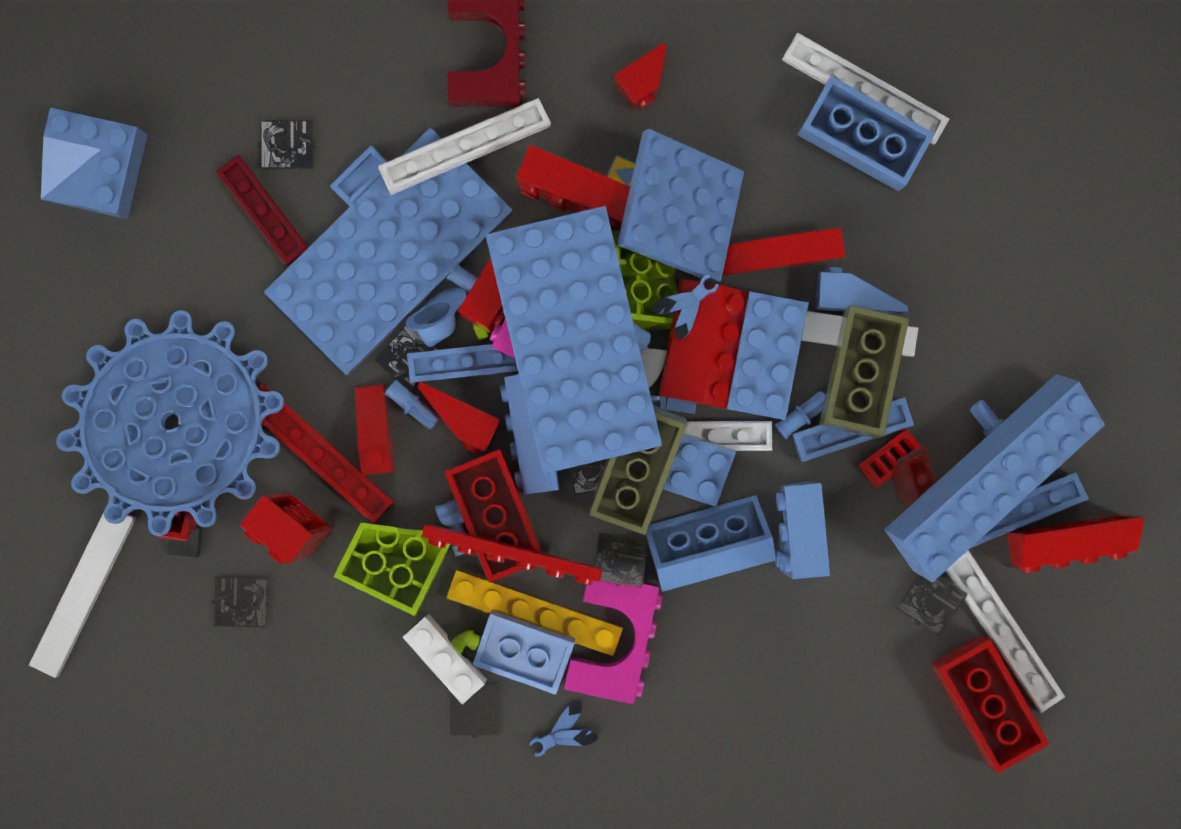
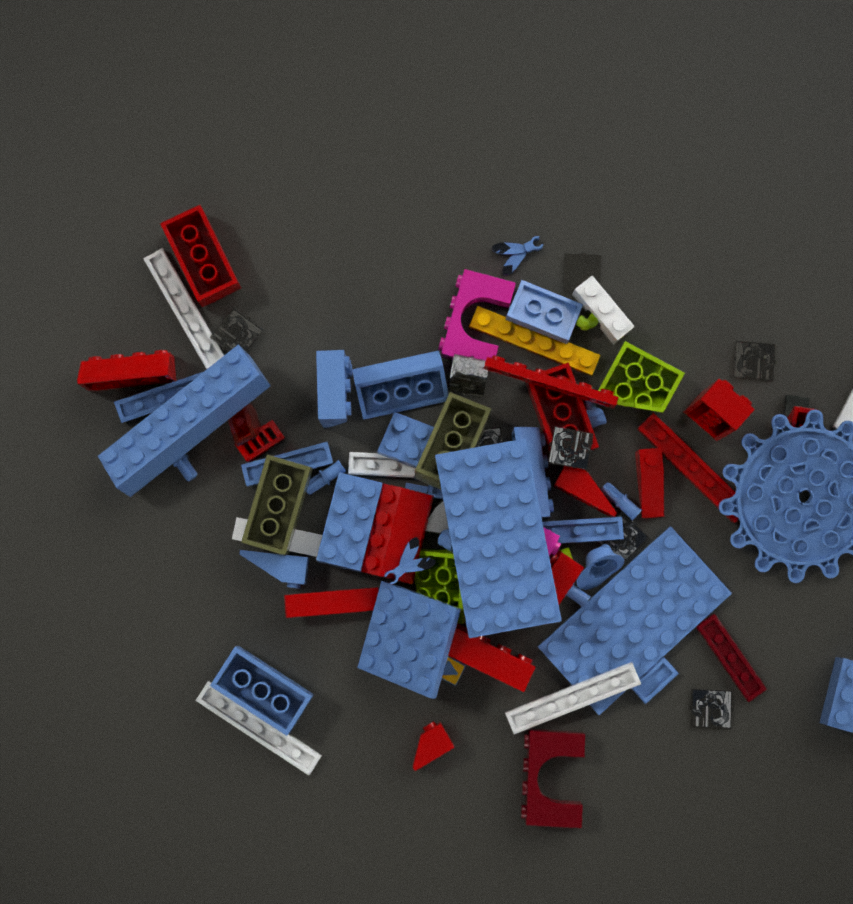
camera: 165 degrees left, 5 degrees down
(481, 467) = (570, 448): none -> piece

